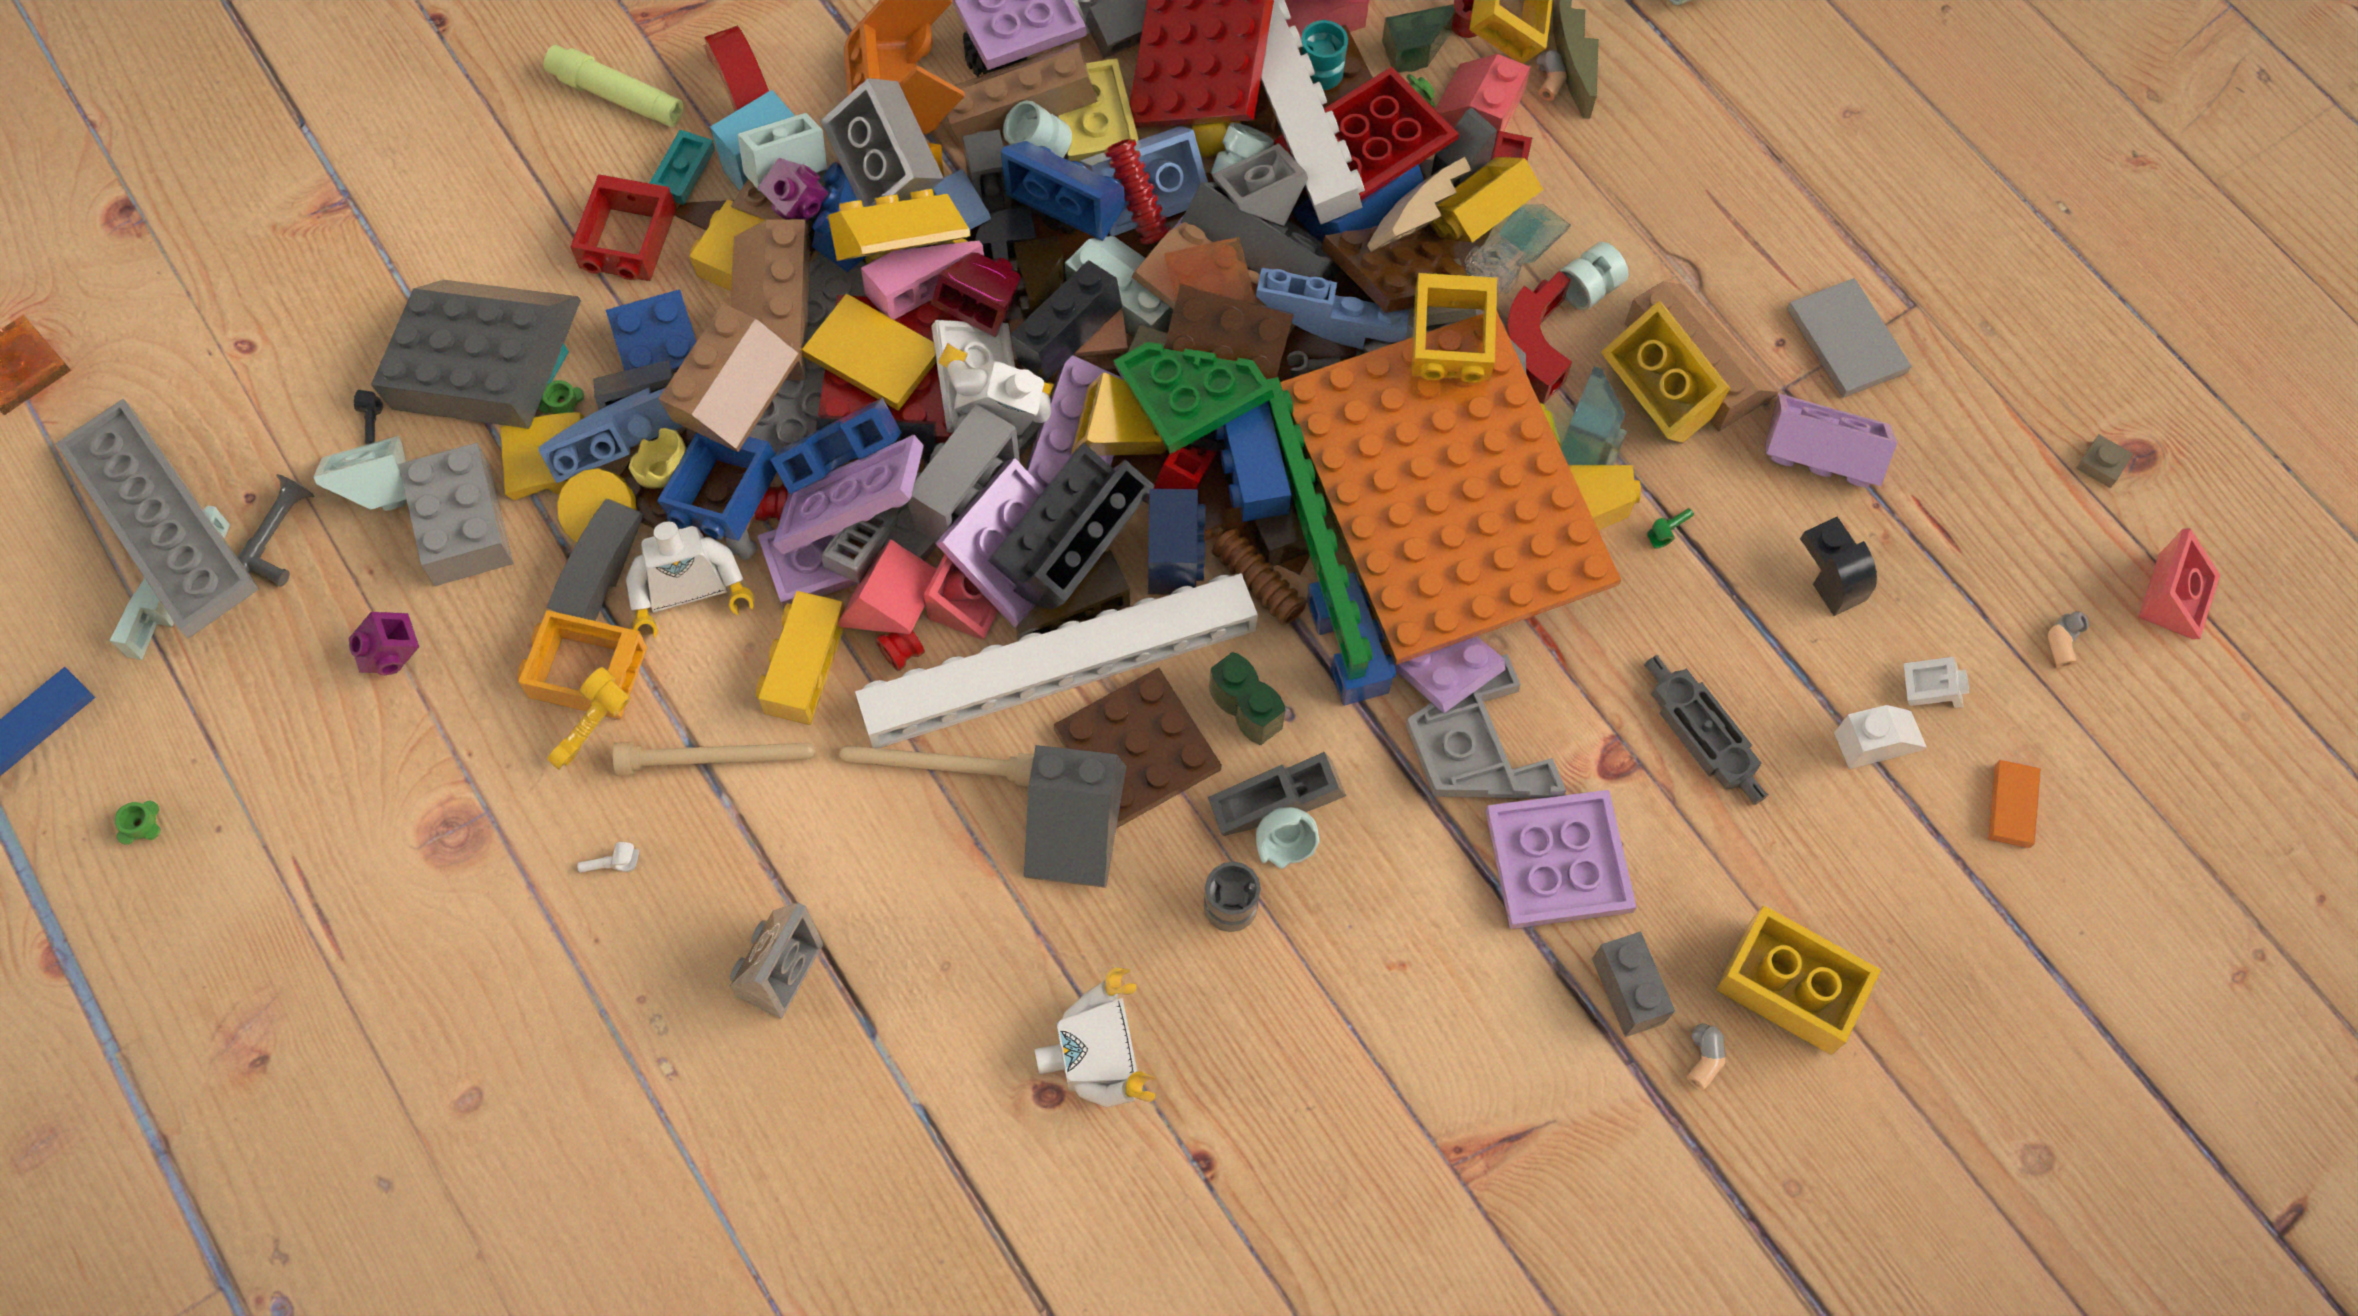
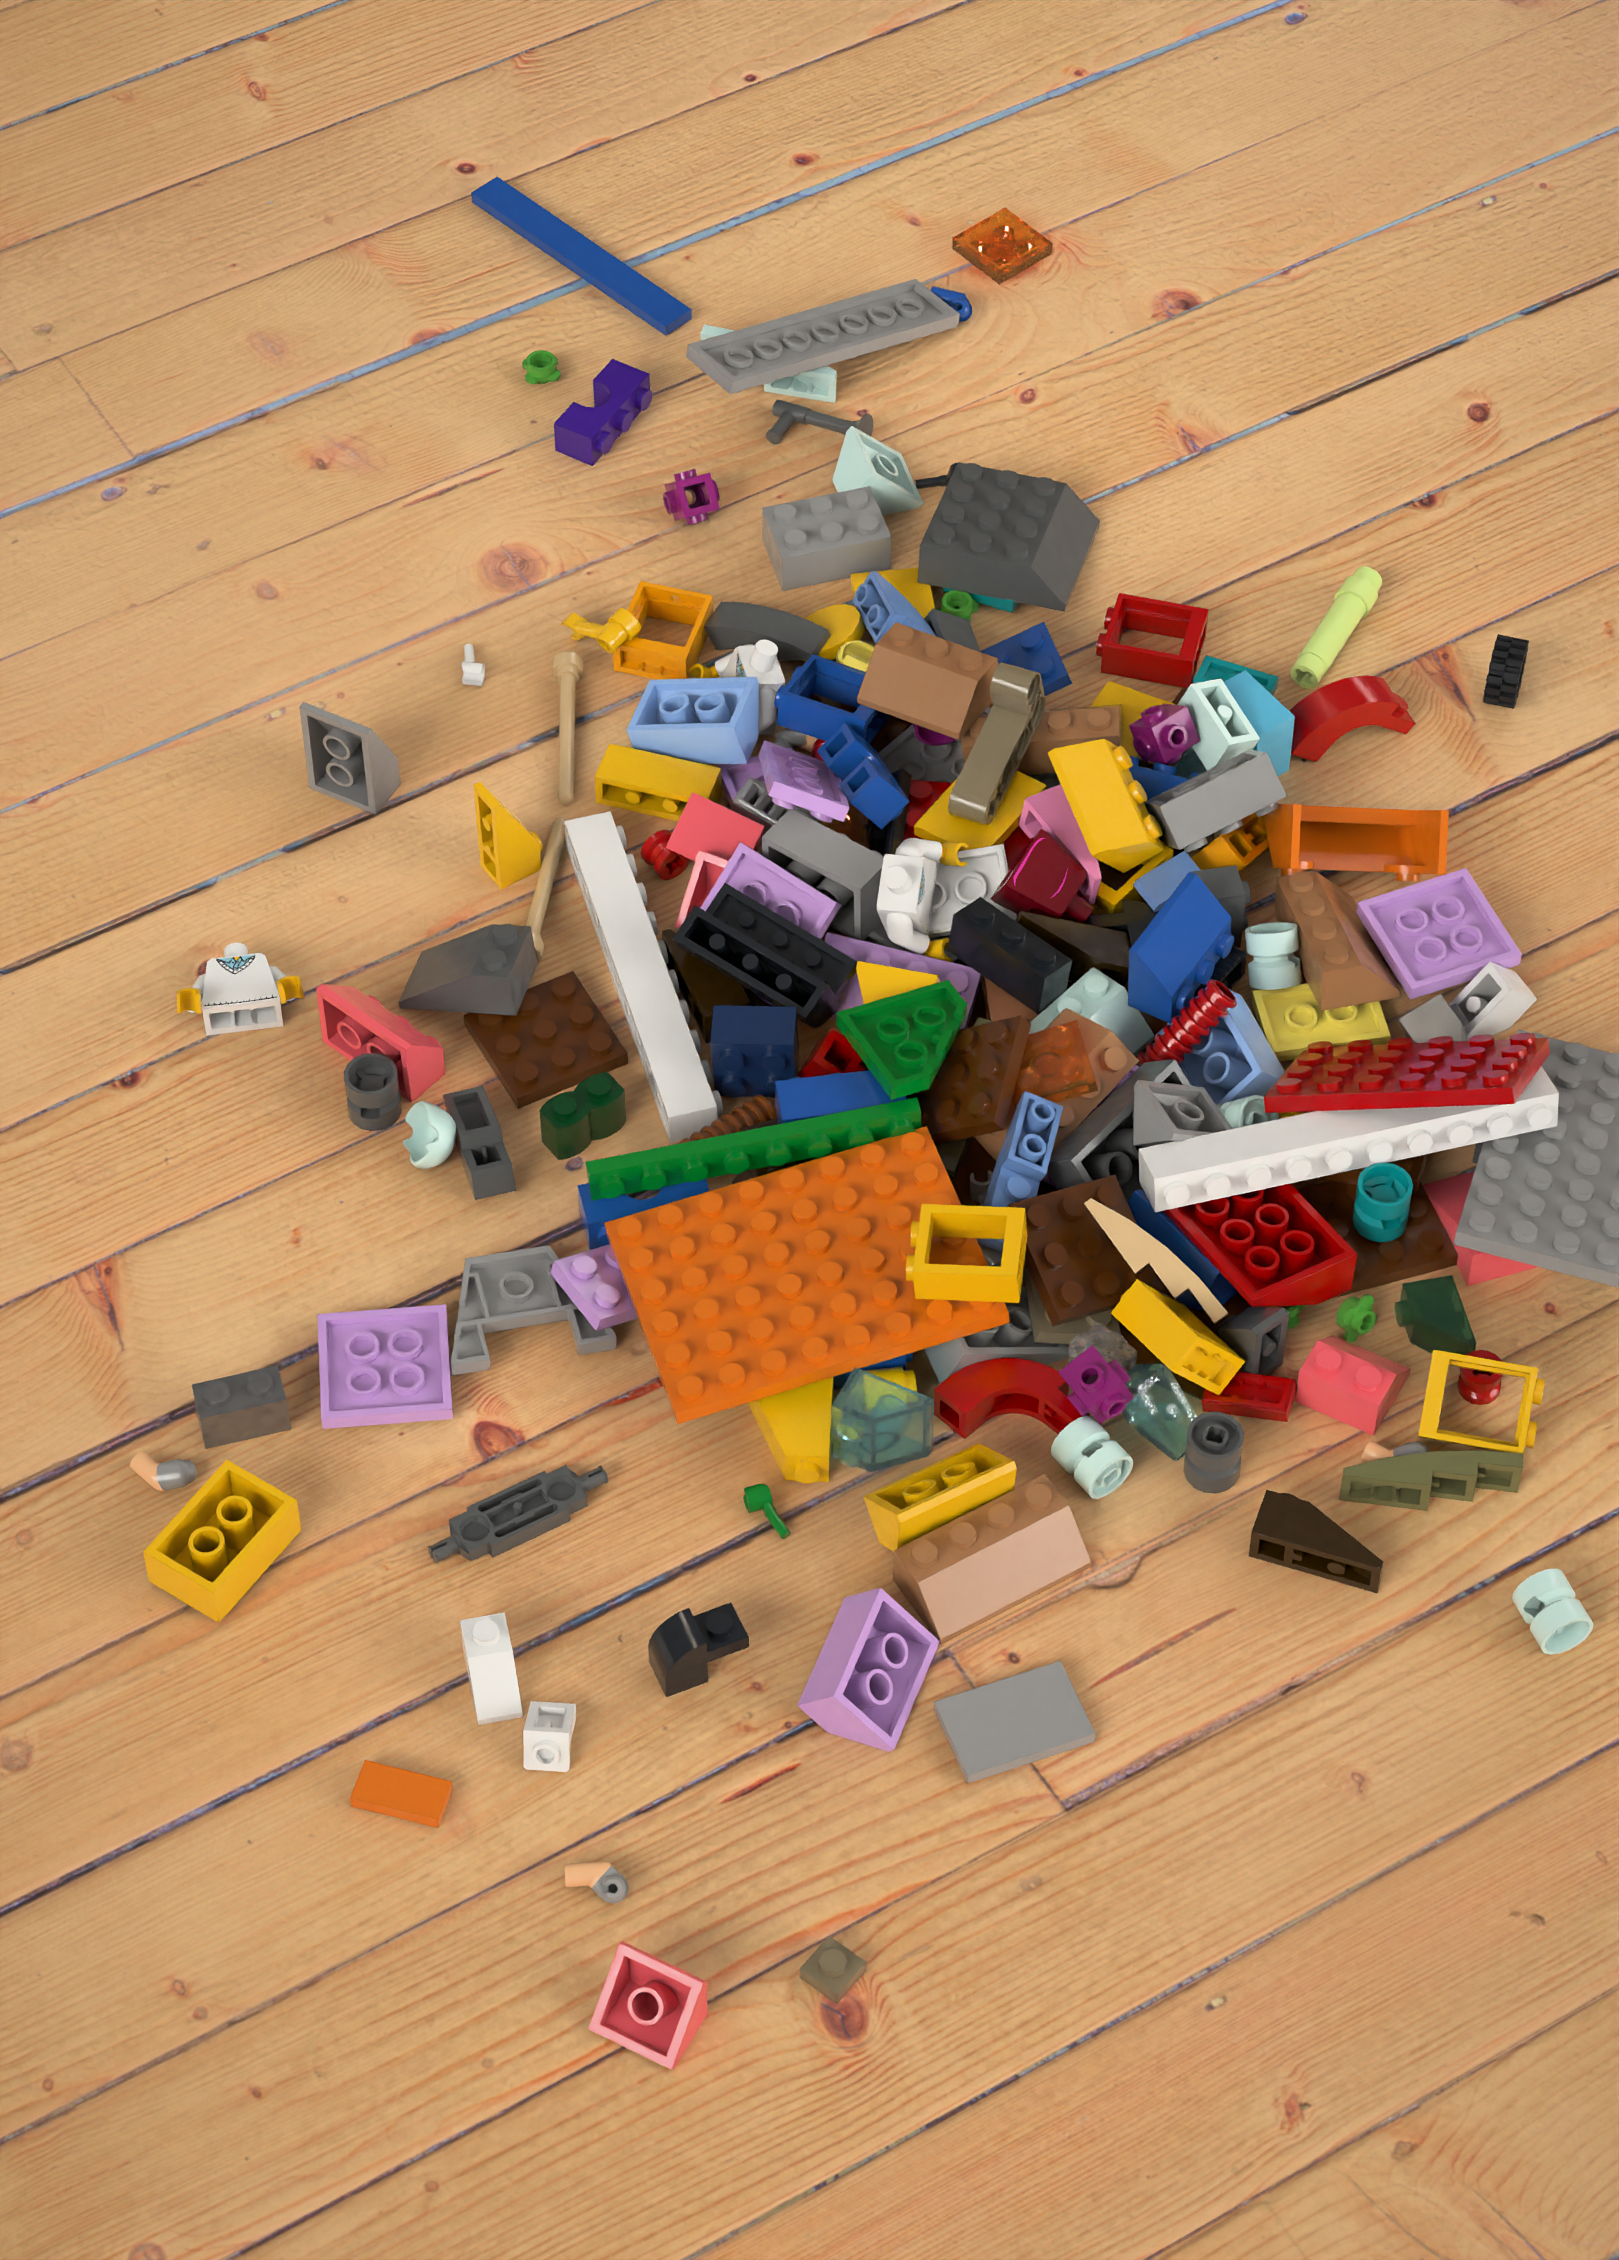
camera: 95 degrees right, 15 degrees down
(93, 407) = (956, 300): none -> blue arm
(201, 728) = (618, 399): none -> dark purple arch
(732, 612) = (698, 719): none -> light blue slope
(822, 315) = (1001, 744): none -> dark tan beam
(899, 790) = (505, 845): none -> yellow slope
(1160, 894) = (361, 1025): none -> coral slope
(1547, 254) = (1097, 1385): none -> magenta brick
(1577, 188) = (1213, 1452): none -> dark grey wheel
(1646, 132) = (1307, 1540): none -> dark brown slope

